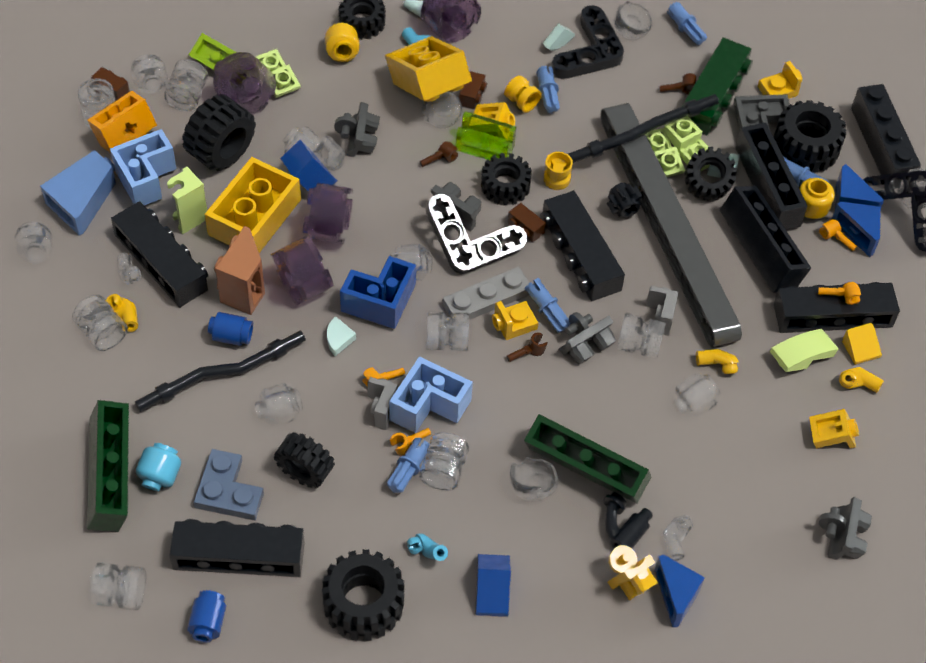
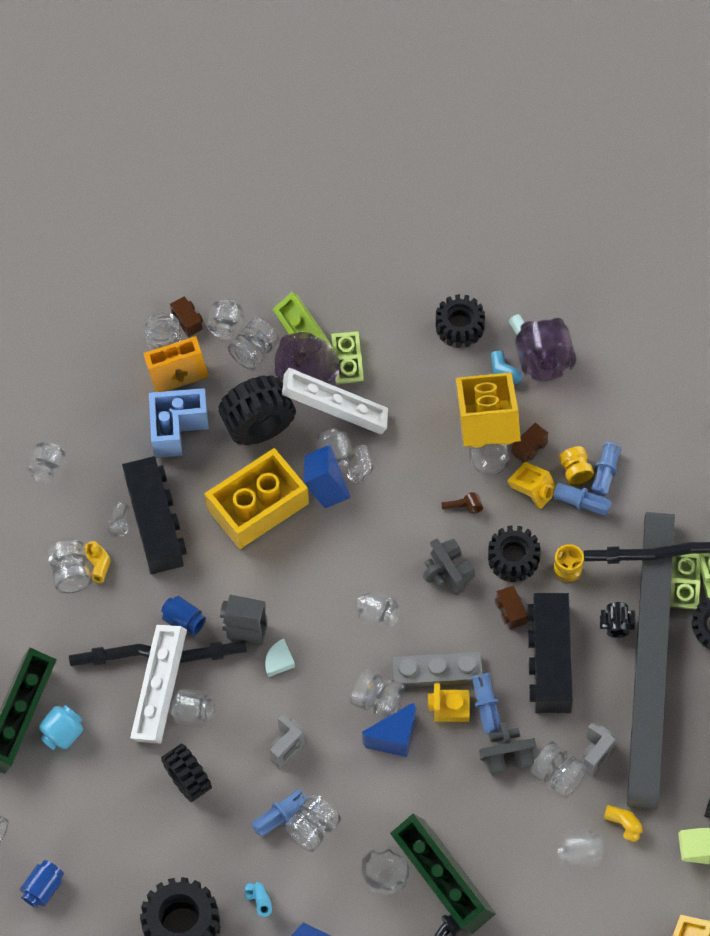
camera: 30 degrees right, 5 degrees up
(80, 190) = (111, 422): medium blue slope -> none
(189, 200) = (199, 474): yellowish green hinge -> none
(221, 492) = (106, 772): sand blue plate -> none
(237, 394) = (158, 684): none -> white plate
(237, 548) = (95, 832): black brick -> none
(241, 274) = (213, 564): nougat slope -> none
(286, 103) = (335, 401): none -> white plate
(293, 308) = (244, 619): none -> dark grey brick
(302, 270) = (271, 580): clear purple brick -> none
(328, 213) = (322, 531): clear purple brick -> none
(342, 42) = (424, 346): yellow head -> none
(356, 128) = (392, 460): dark grey hips -> none
(371, 372) = (289, 711): light orange hand -> none
(379, 298) = (333, 638): blue brick -> none
(407, 440) = (280, 782): light orange hand -> none
(426, 390) = (328, 746): light blue brick -> none
(470, 248) = (444, 616): beam -> none
(479, 359) = (392, 733): none -> blue slope
(484, 136) = (514, 502): clear neon green hinge -> none
(532, 348) = (449, 739): reddish brown hand -> none
(541, 118) = (582, 499): none -> medium blue axle
(558, 37) = (646, 413): light aqua tile -> none
(569, 63) = (679, 443): black beam -> none

